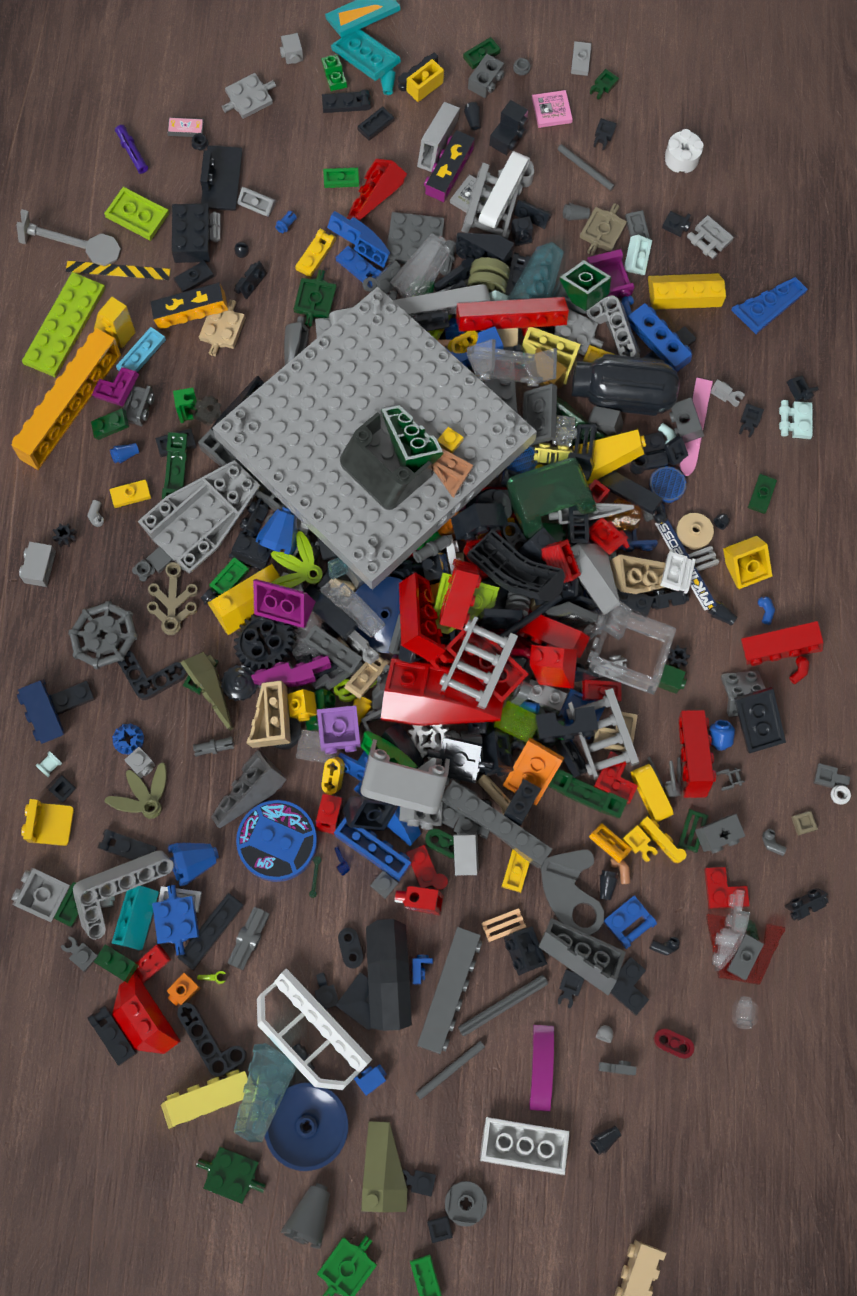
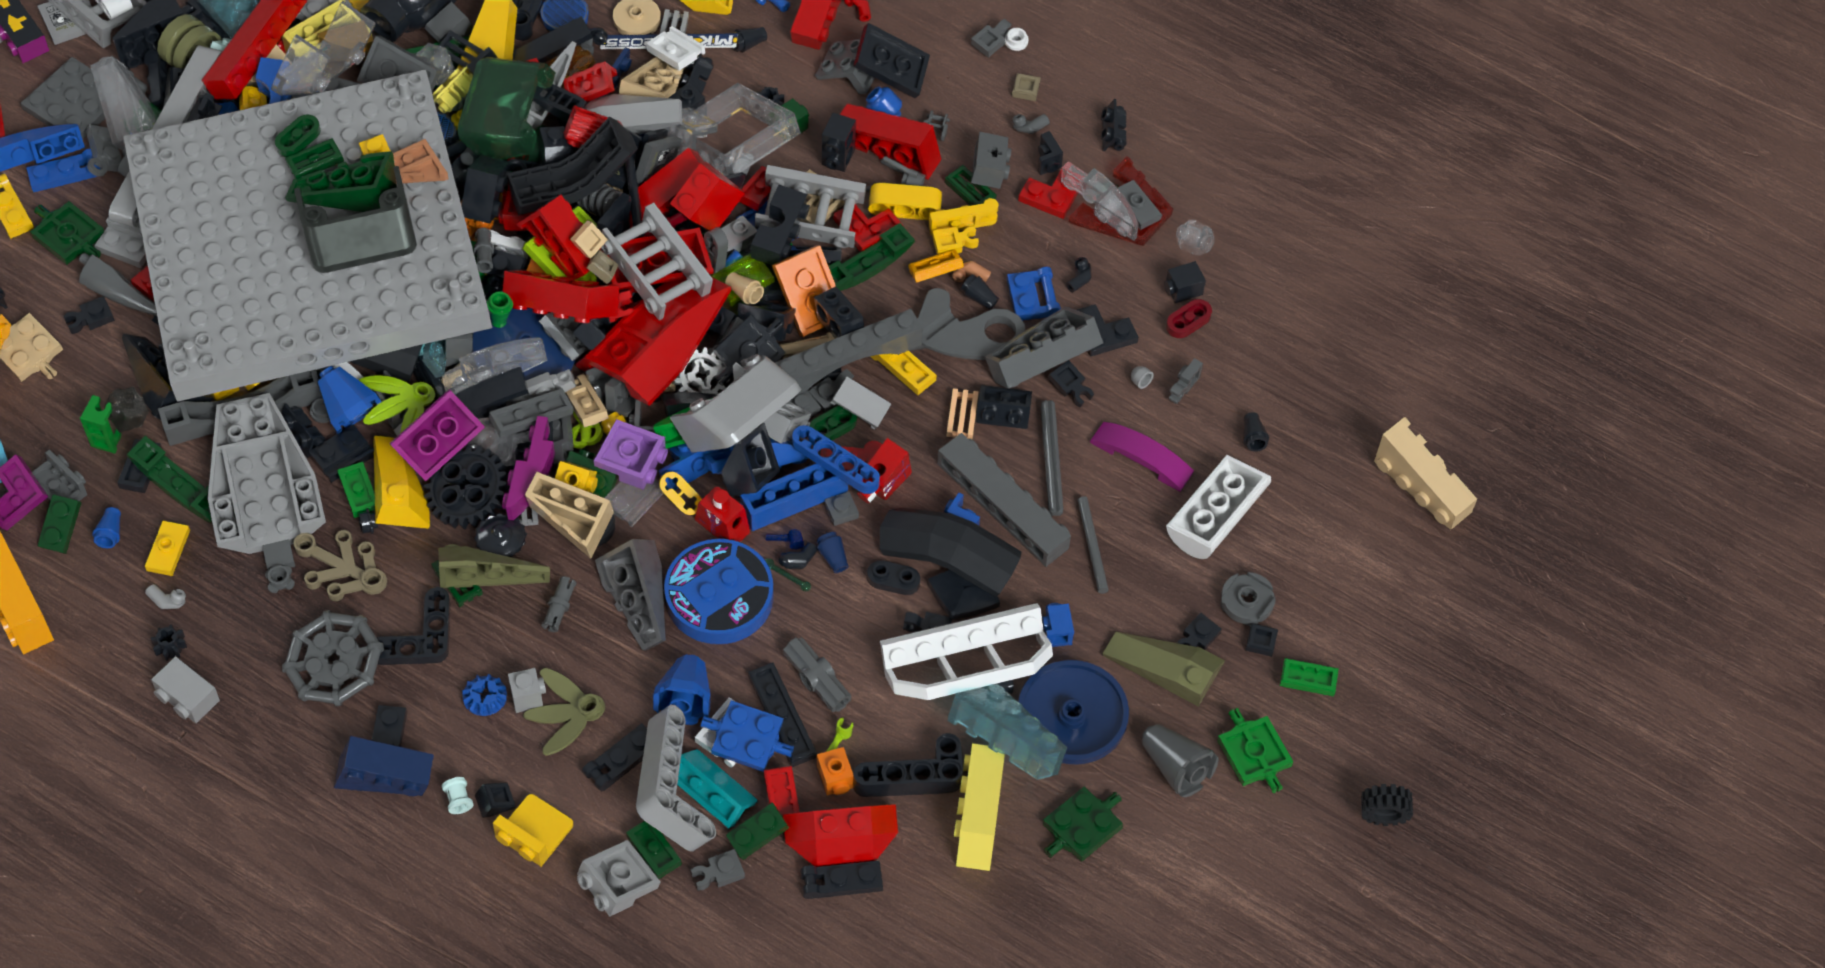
camera: 60 degrees left, 15 degrees down
(268, 350) = (93, 313): none -> black plate
(328, 878) = (798, 560): none -> black arm
(346, 898) = (832, 549): none -> dark blue cone
(389, 580) = (499, 308): none -> green cone
(404, 864) = (833, 461): none -> blue beam
(417, 413) = (315, 162): none -> dark green tile
(432, 386) = (294, 138): none -> dark green plate
(451, 632) = (602, 266): none -> dark tan tile
(460, 612) = (589, 239): none -> tan plate
(505, 730) = (746, 288): none -> tan cone
(667, 722) = (838, 142): none -> black brick
(701, 1025) = (1185, 282): none -> black brick
(756, 869) = (1050, 154): none -> black bracket

